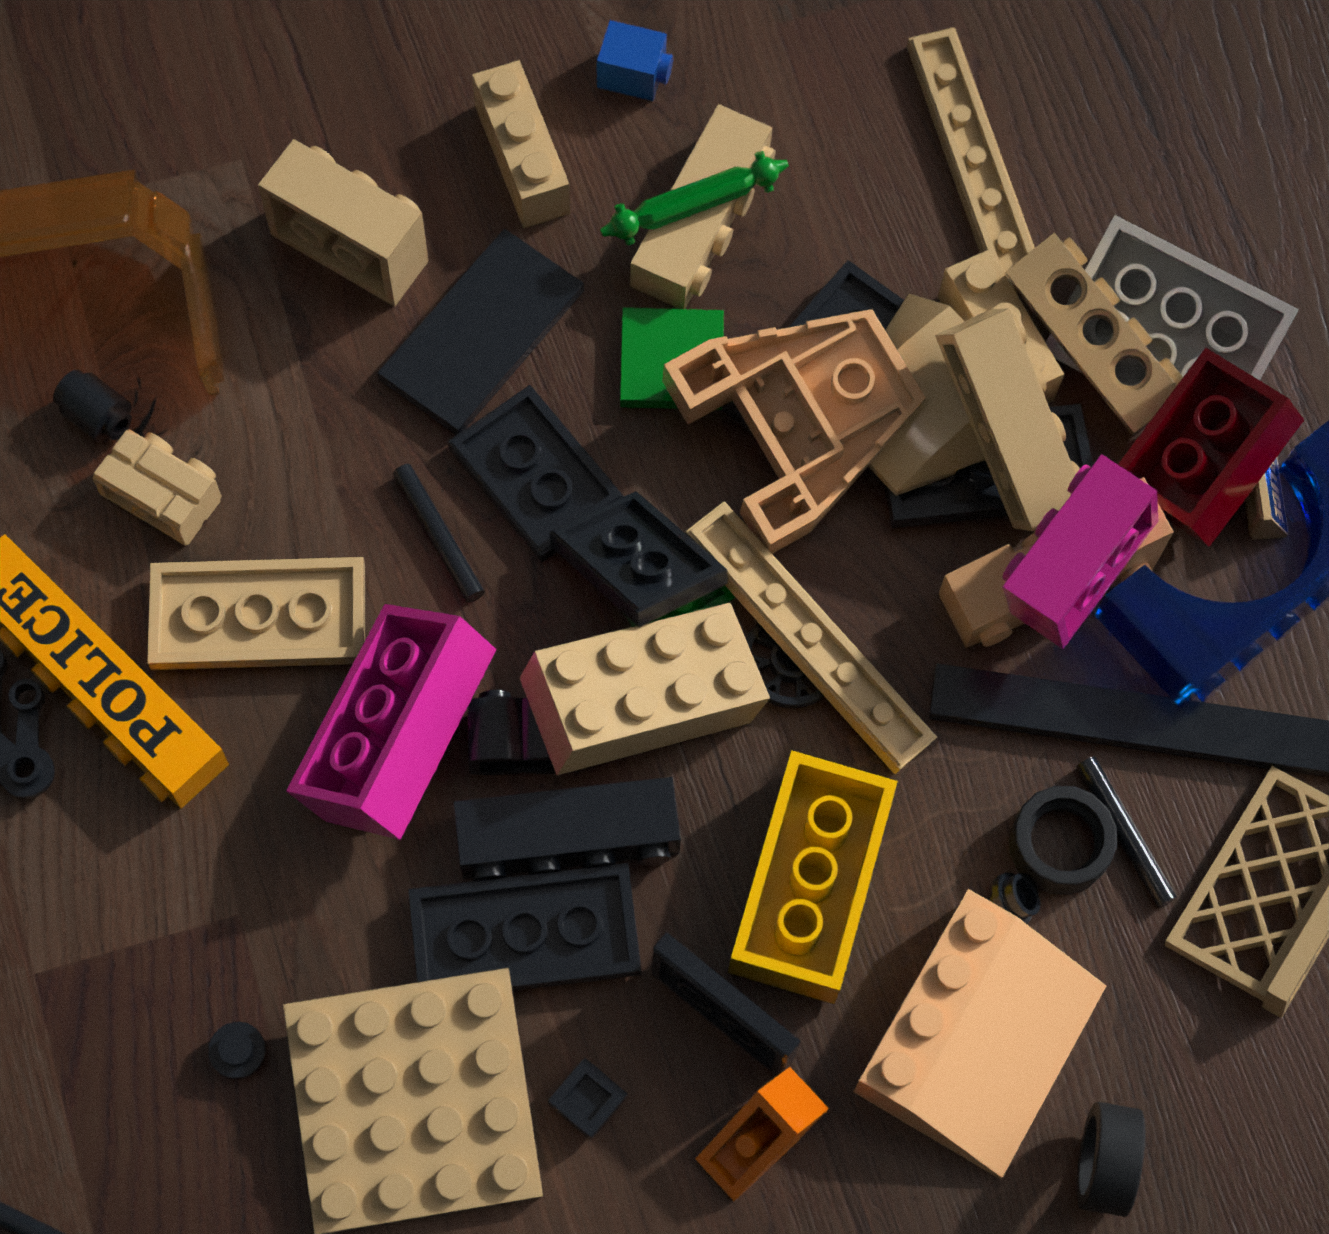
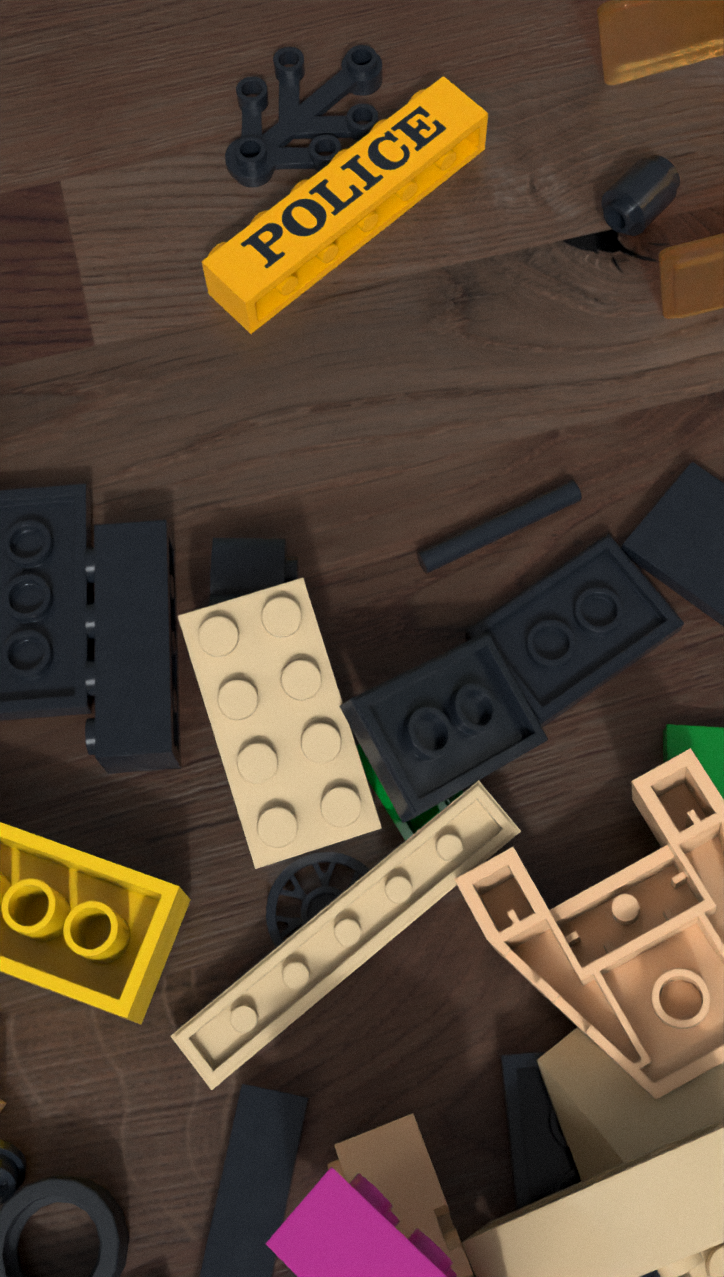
camera: 100 degrees right, 0 degrees up
(158, 486) = (548, 253): tan brick -> none
(256, 613) = (405, 350): tan plate -> none
(392, 720) = (260, 458): dark pink brick -> none

